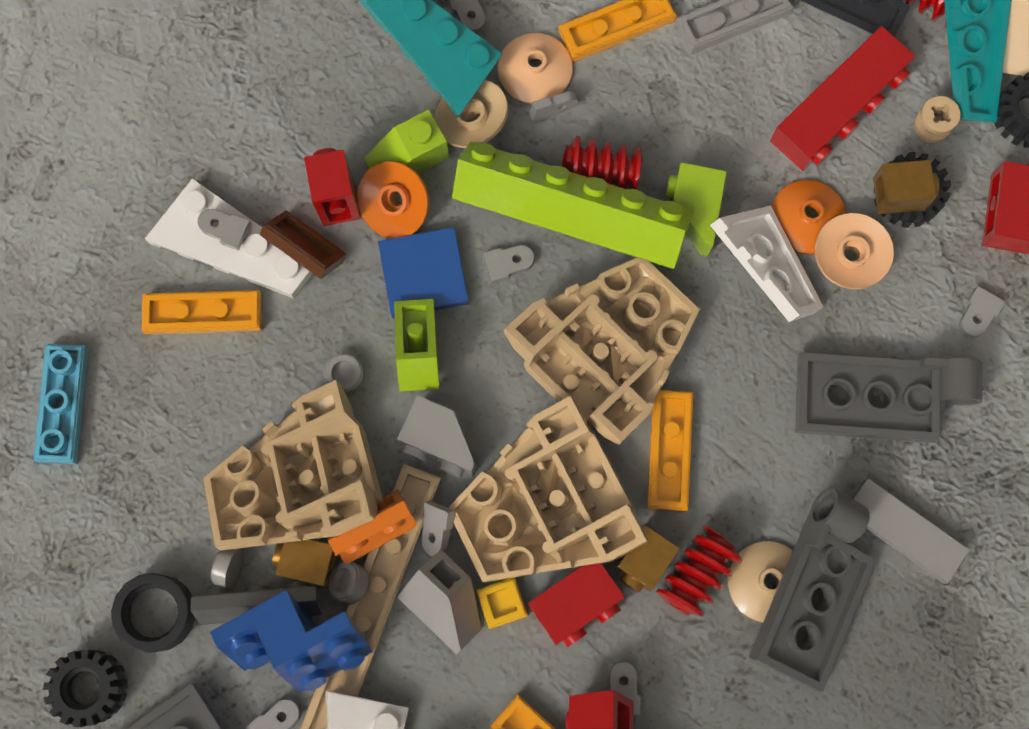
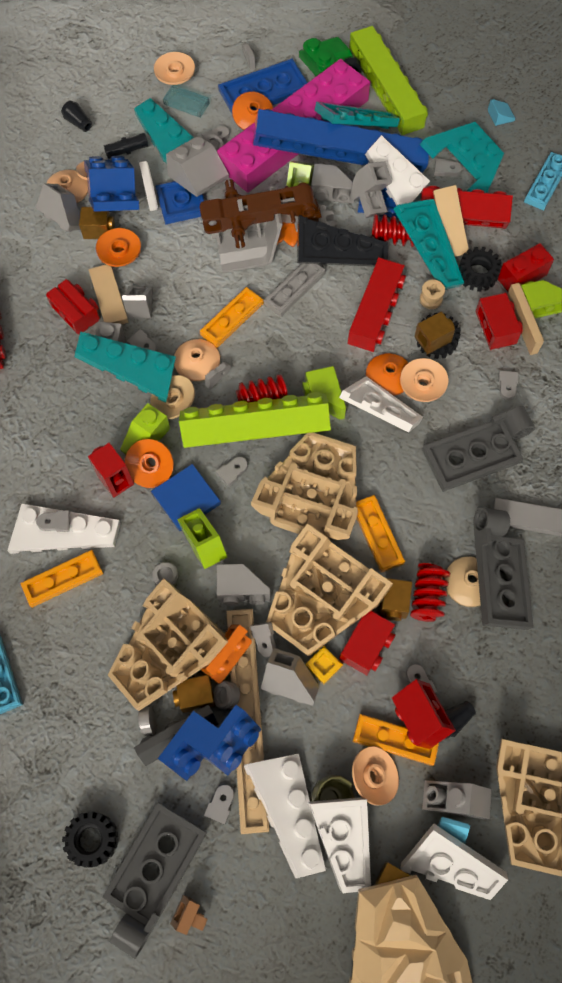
camera: 25 degrees left, 10 degrees down
(123, 602) = (92, 767): black tyre -> none
(303, 244) = (106, 511): reddish brown tile -> none

